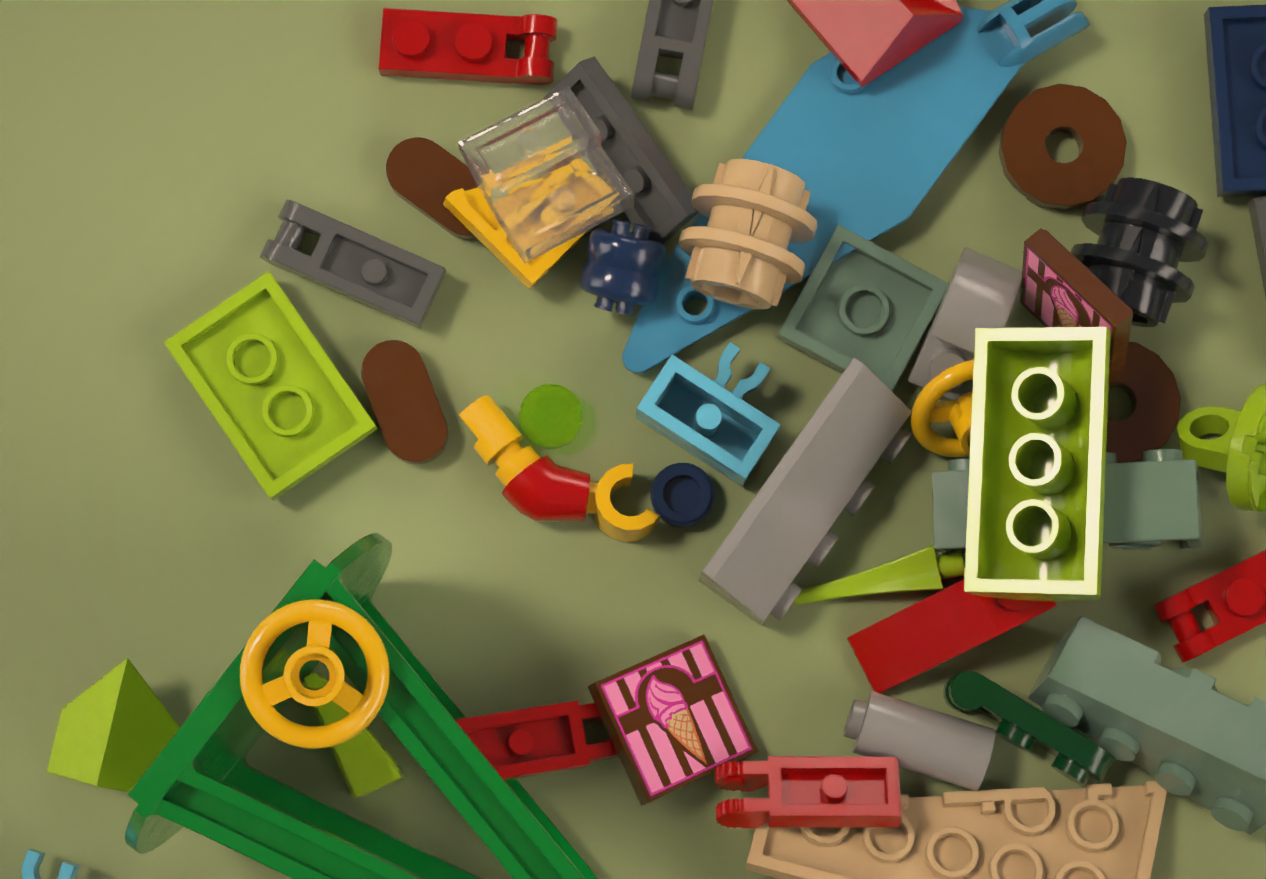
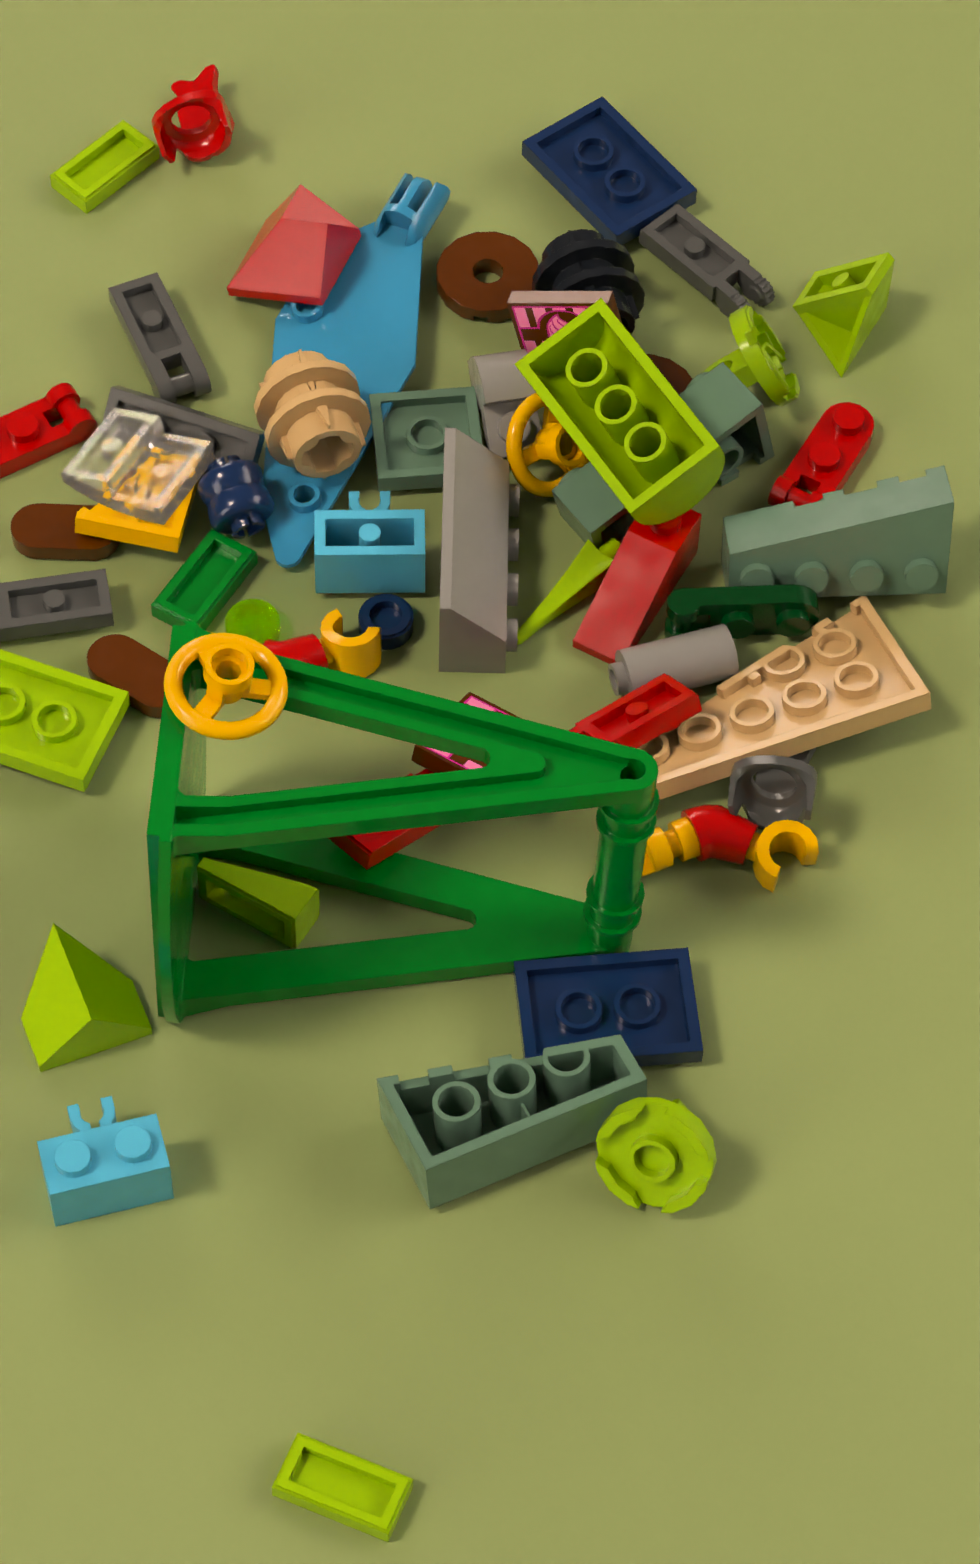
camera: 35 degrees left, 25 degrees down
(537, 336) = (205, 581): none -> green tile

